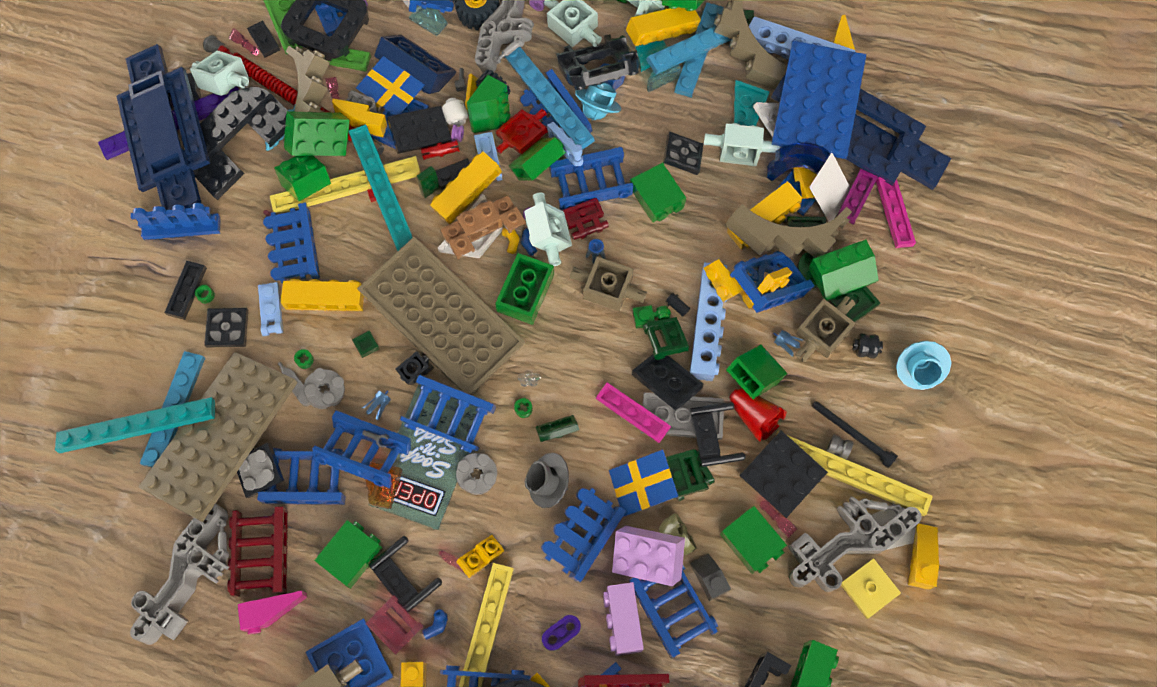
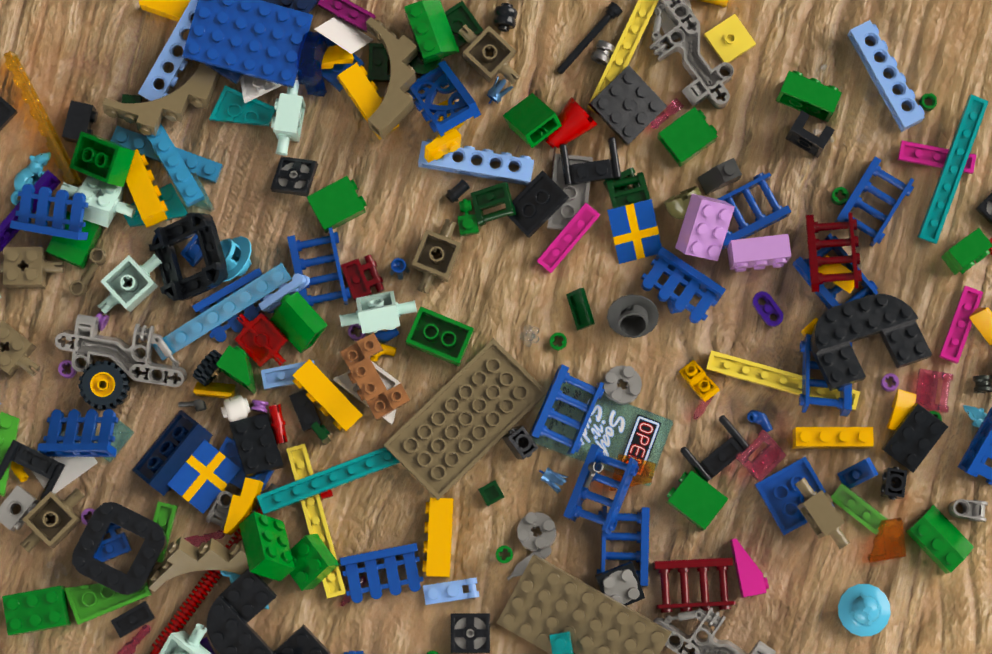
camera: 90 degrees left, 10 degrees up
(775, 280) = (451, 94): yellow plate -> none

